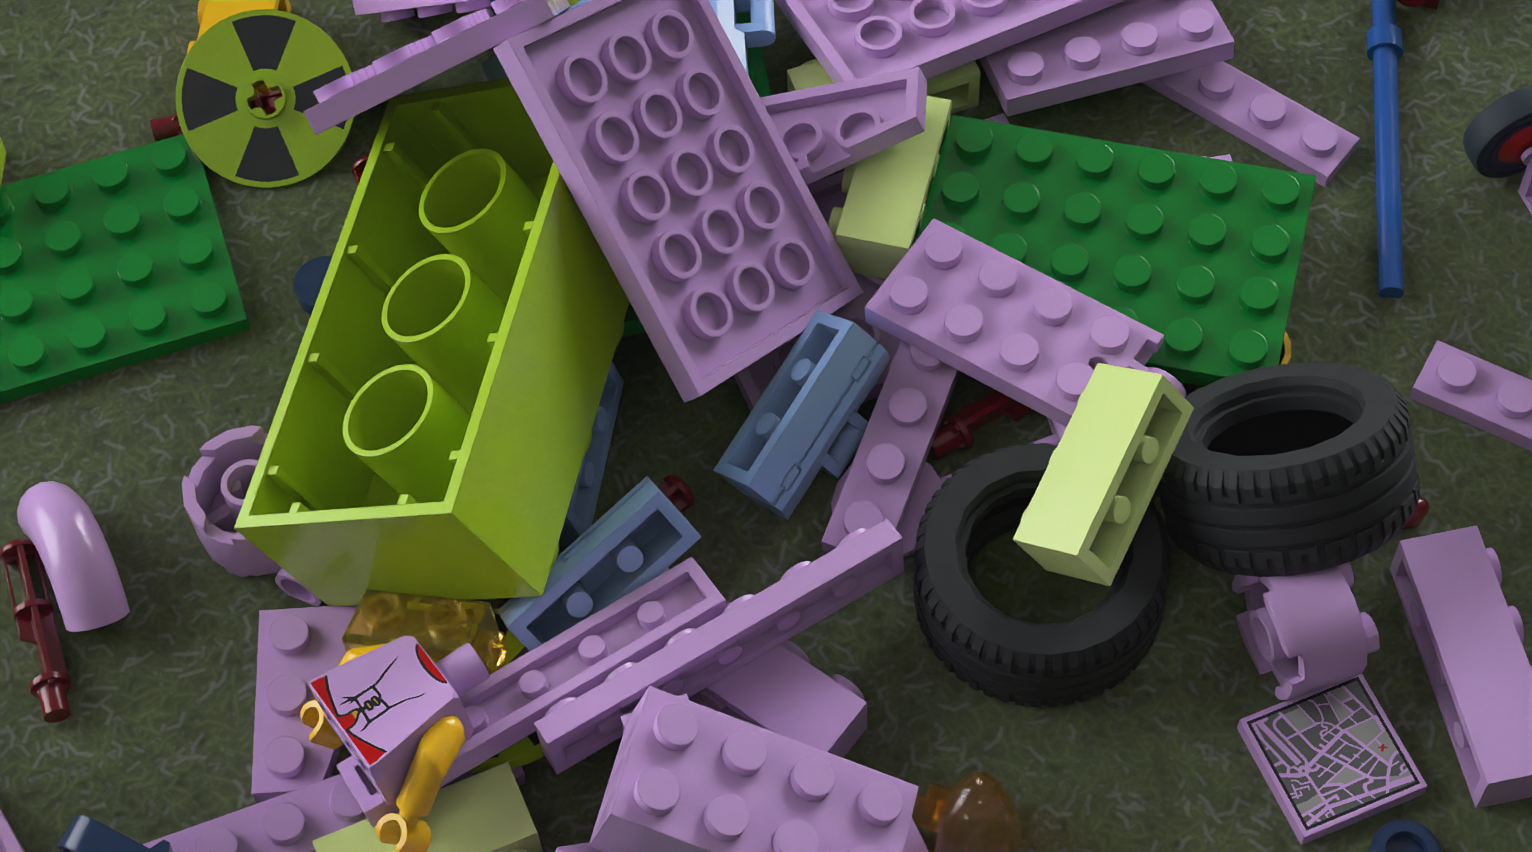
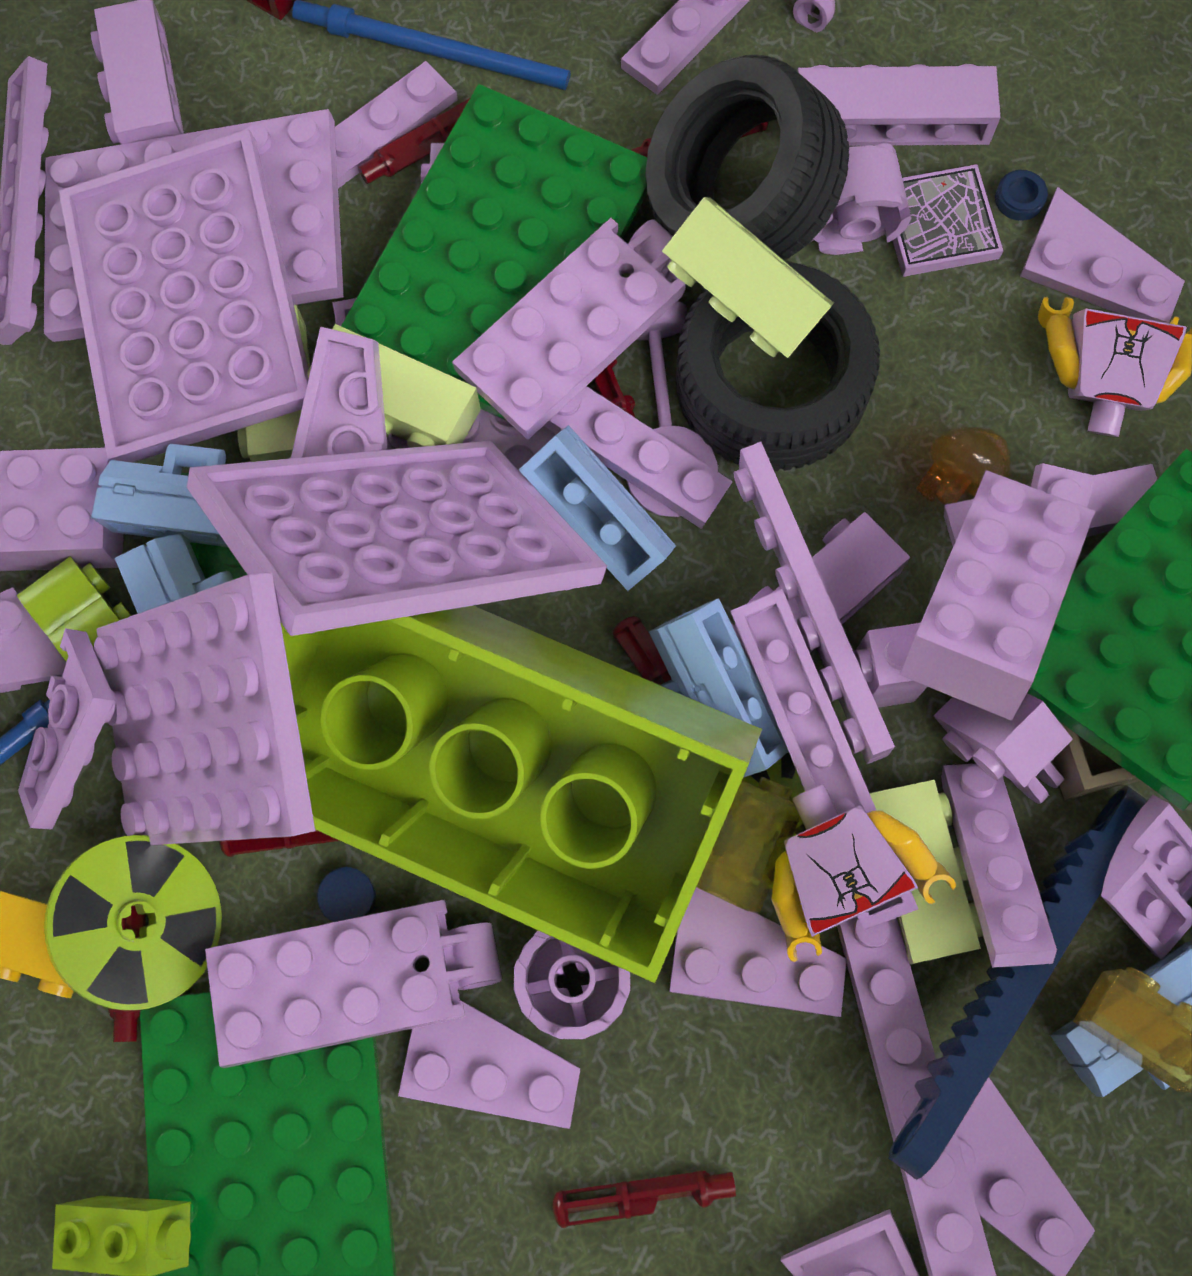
camera: 80 degrees left, 15 degrees up
(73, 556) = (586, 1155): lavender cylinder -> none
(156, 443) = (489, 1070): none -> lavender wing
(224, 287) = (344, 981): none -> lavender hinge
(1223, 139) = (411, 146): none -> dark red piece

